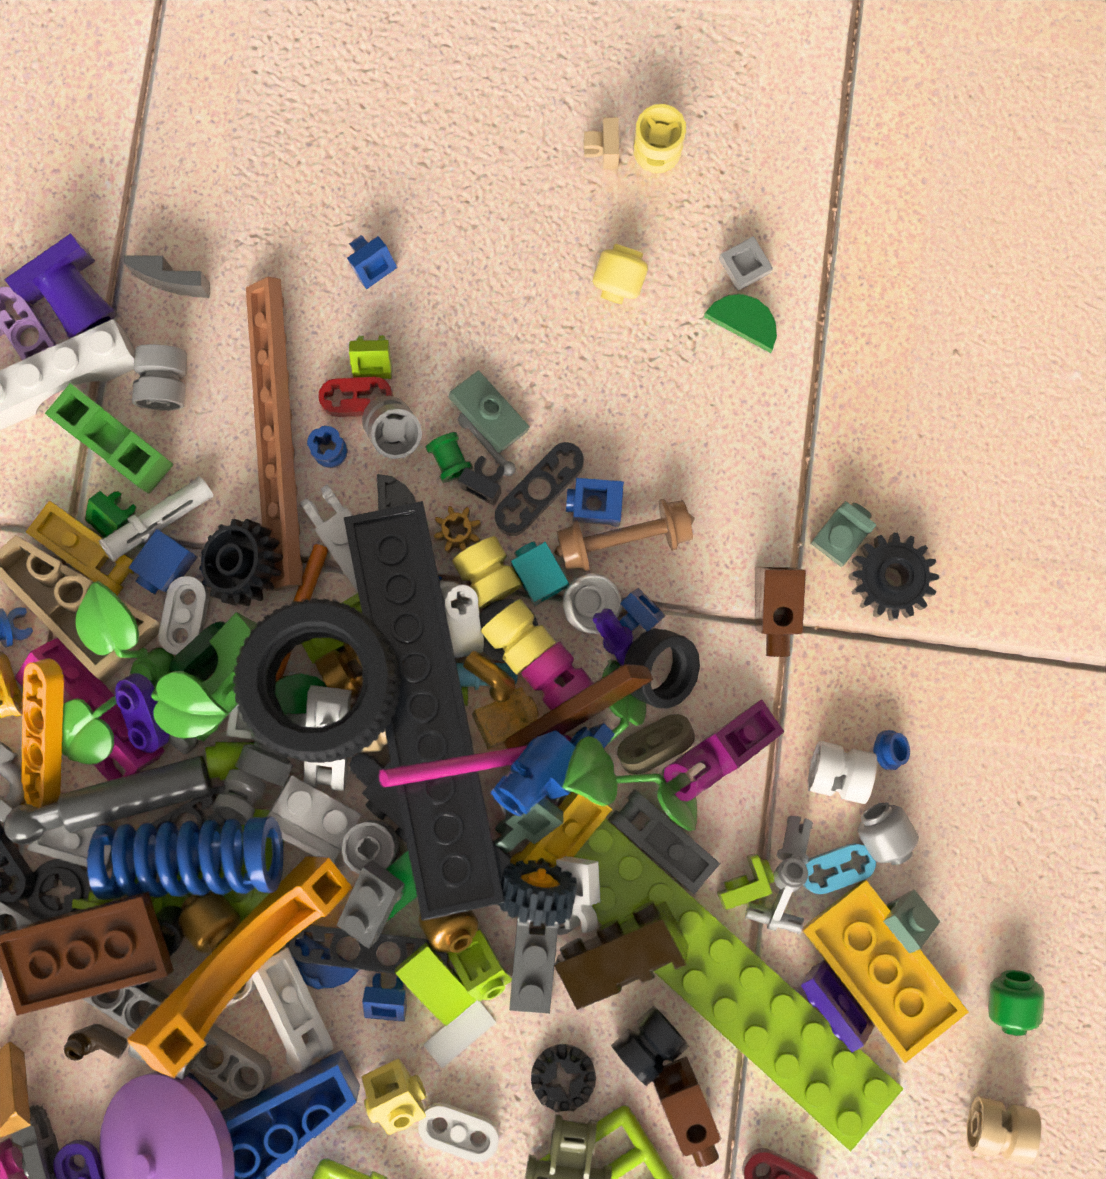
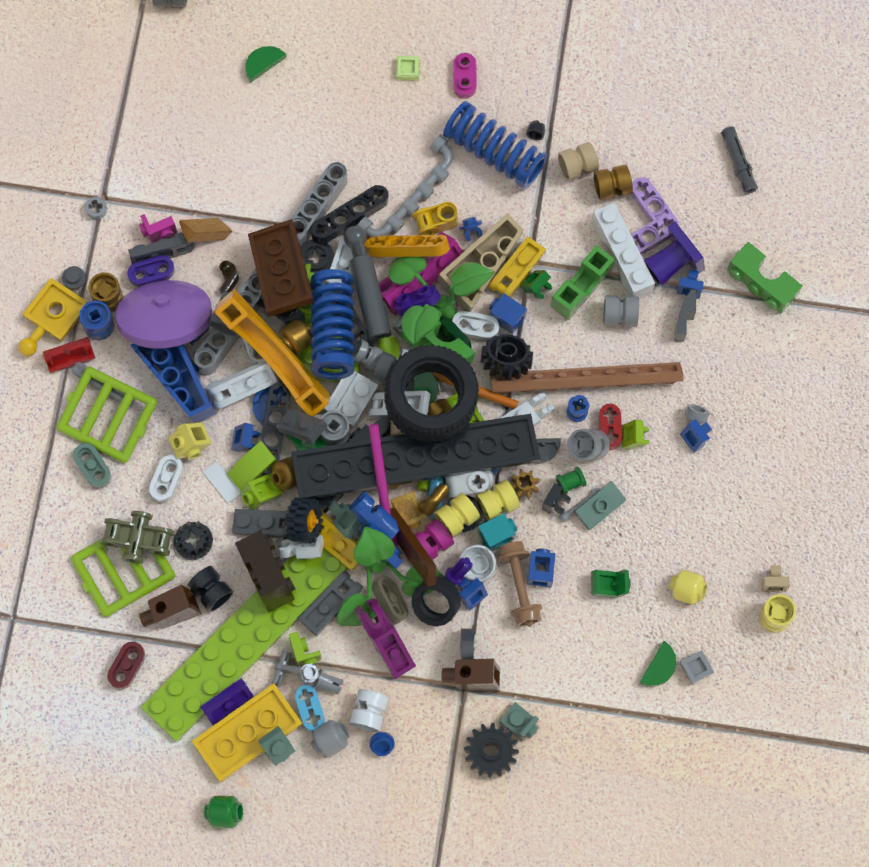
camera: 90 degrees right, 10 degrees down
(89, 177) = (776, 292): none -> bright green arch
(112, 267) = (691, 282): none -> blue tile
(158, 517) = (535, 311): white pin -> none
(333, 259) = (697, 412): none -> light grey tile
(552, 461) = (568, 543): black beam -> none
(618, 393) = (610, 583): none -> green bracket
(730, 616) = (467, 644): none -> dark grey beam
(1008, 1131) = (148, 798): tan wheel -> none

